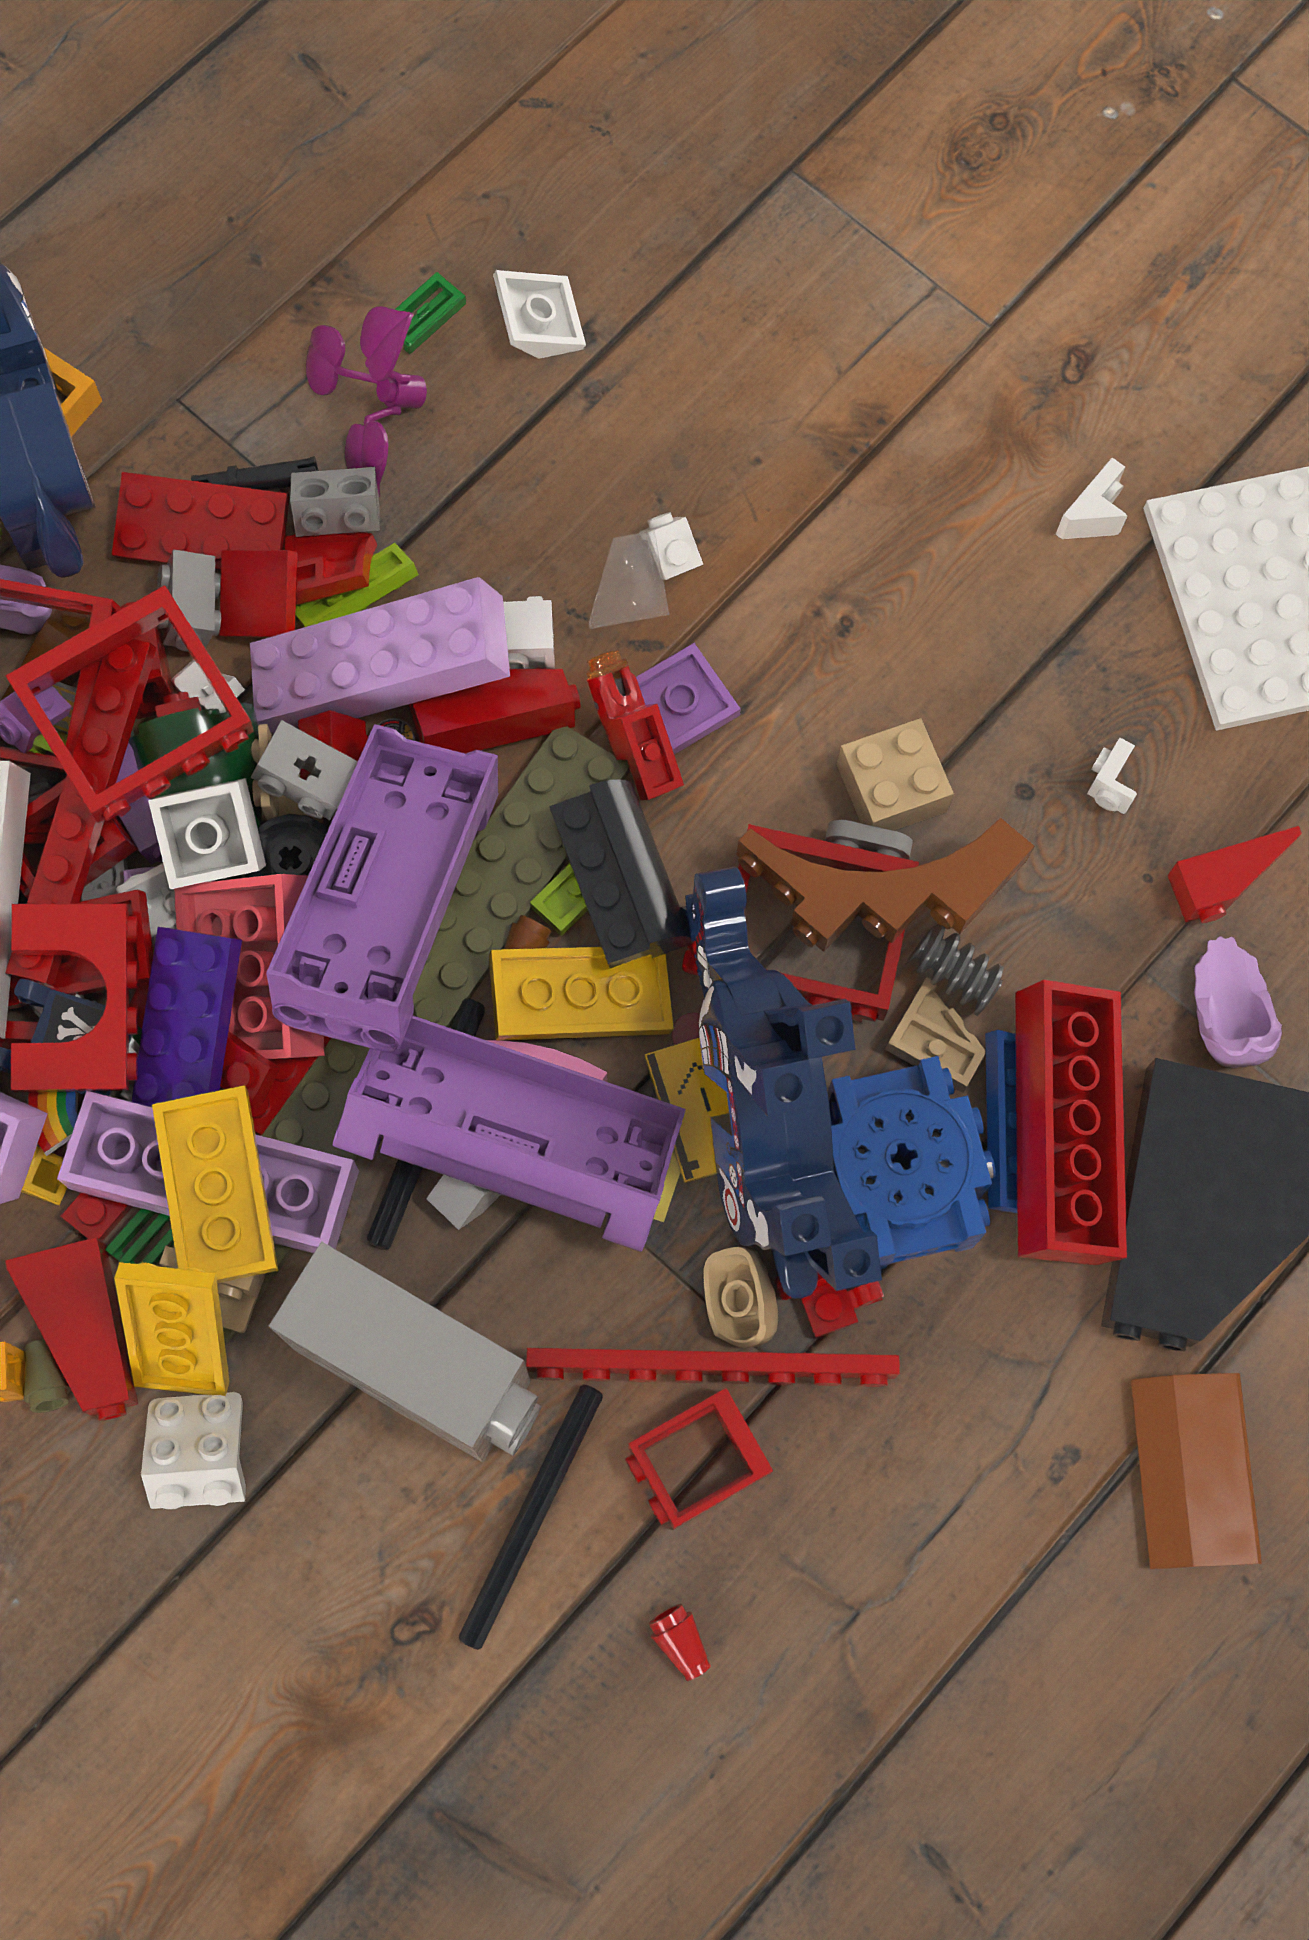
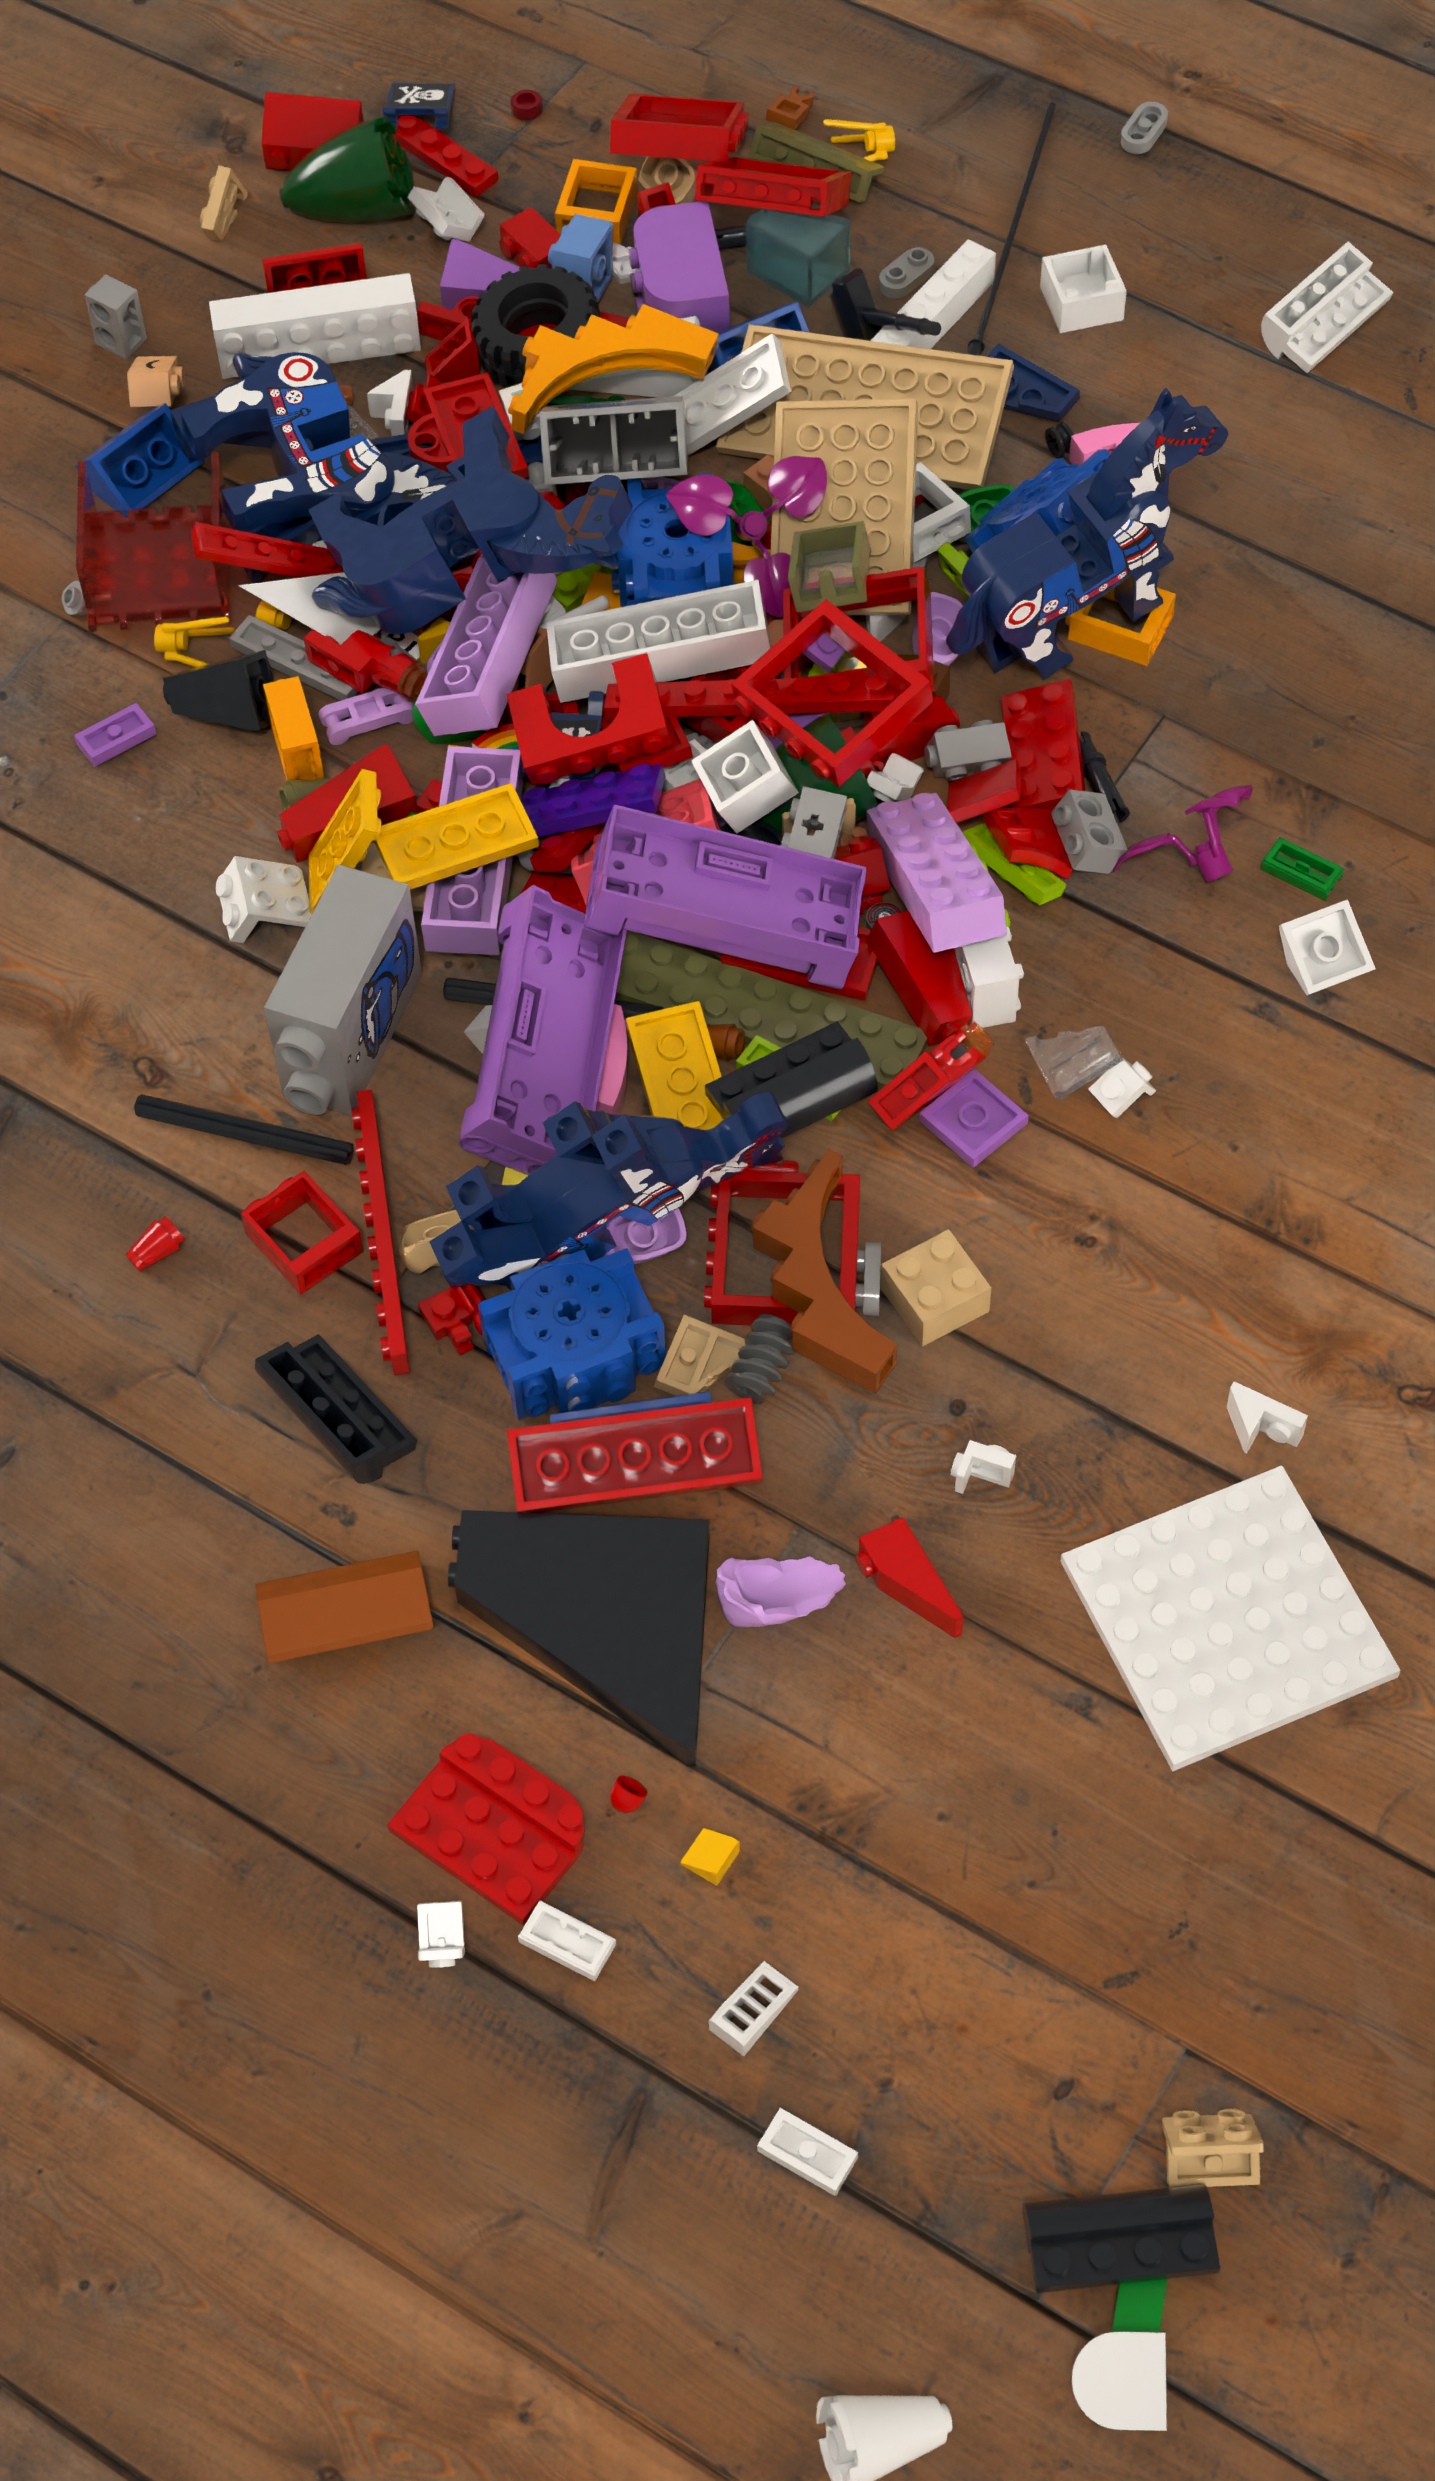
camera: 85 degrees right, 15 degrees down
(945, 1447) = (336, 1407): none -> black brick

